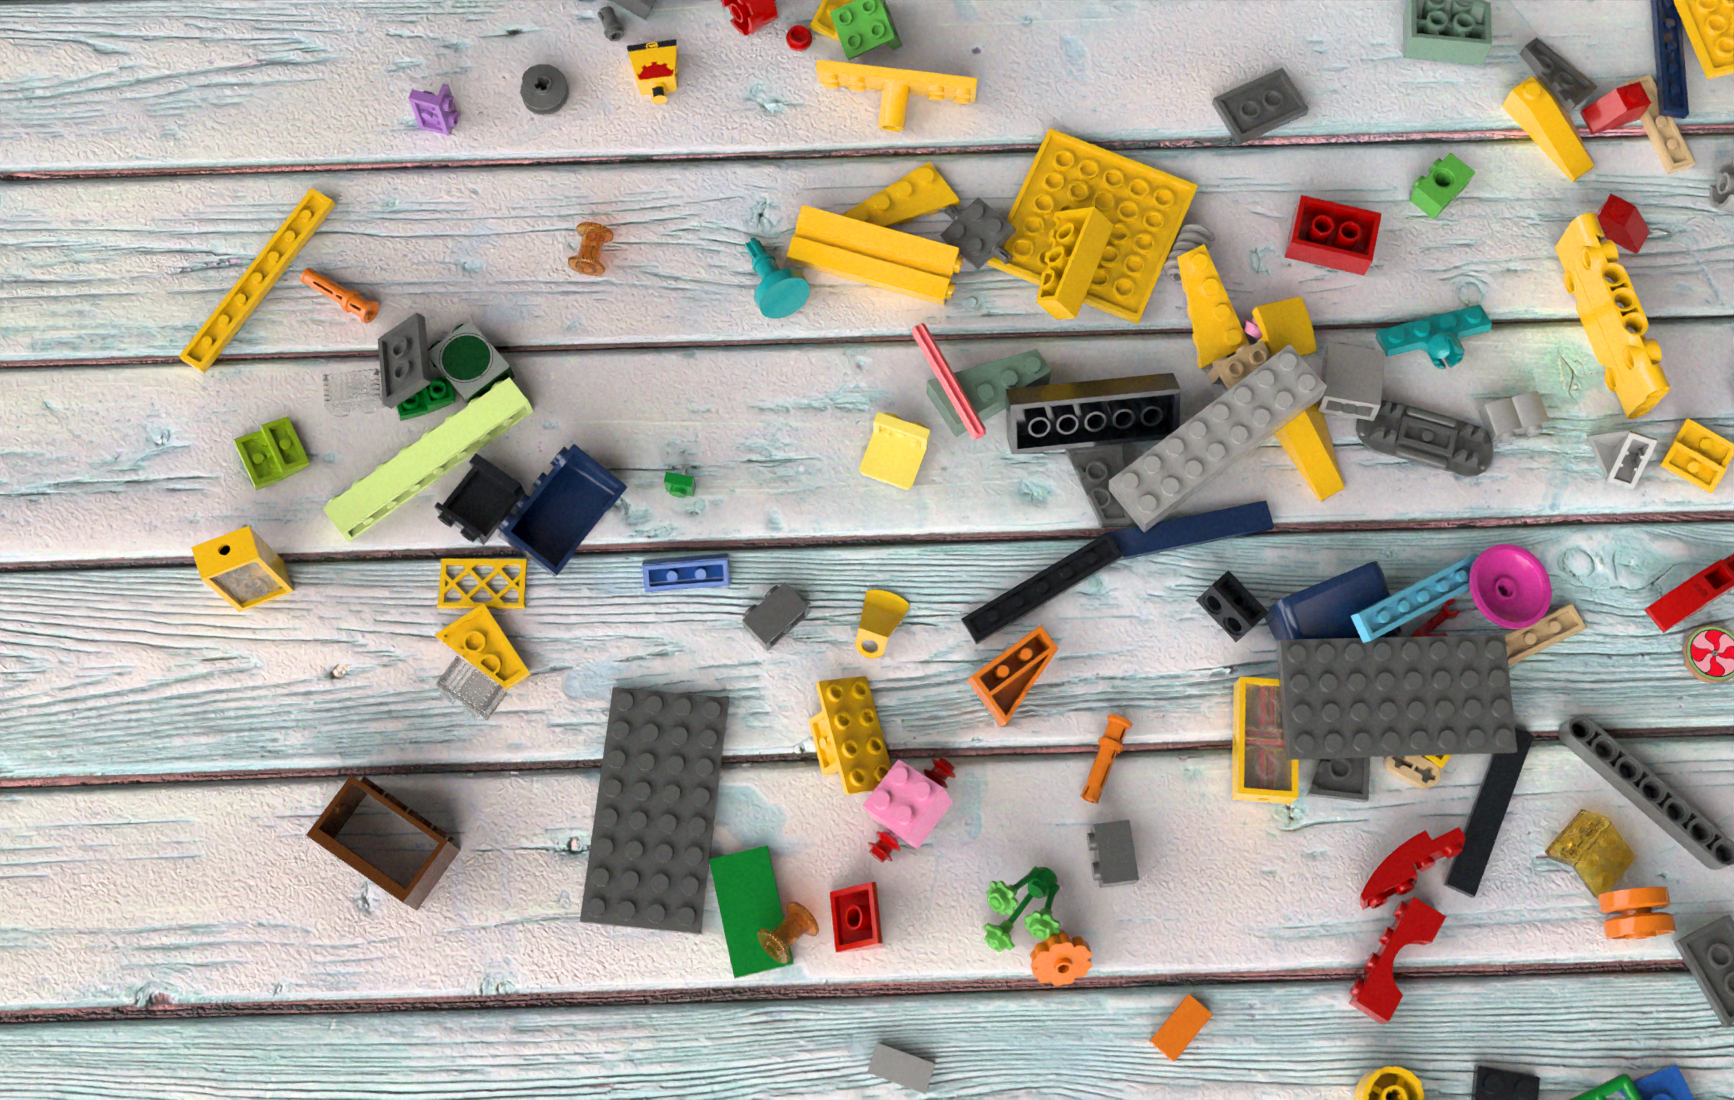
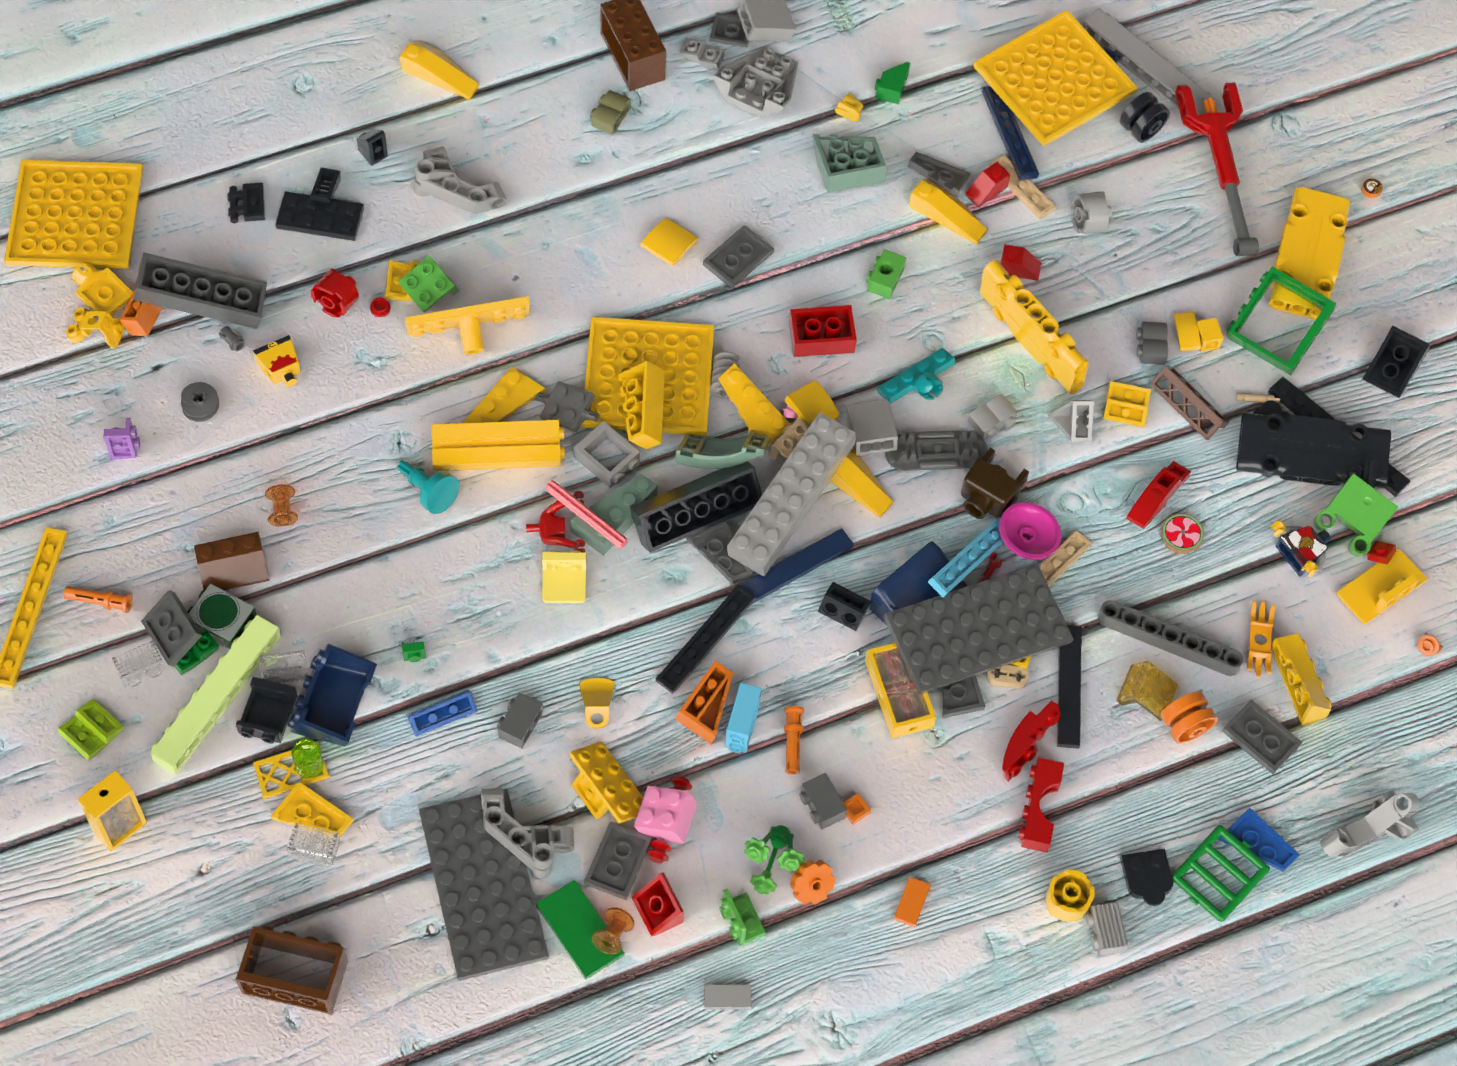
camera: 25 degrees left, 10 degrees down
(502, 578) = (307, 758): none -> clear neon green wheel
(507, 301) = (232, 562): none -> reddish brown slope
(517, 452) = (284, 666): none -> clear brick
(737, 783) = (538, 841): none -> light grey connector
(829, 840) = (618, 861): none -> dark grey plate
(905, 382) = (553, 527): none -> red piece
(957, 971) = (742, 917): none -> bright green bracket
(994, 287) = (592, 441): none -> light grey window
(1050, 711) = (743, 718): none -> medium azure window
(1149, 354) = (720, 453): none -> sand green wedge
(1152, 877) = (856, 808): none -> orange tile
(1180, 61) = (669, 241): none -> yellow slope
(1477, 512) = (990, 488): none -> dark brown piece

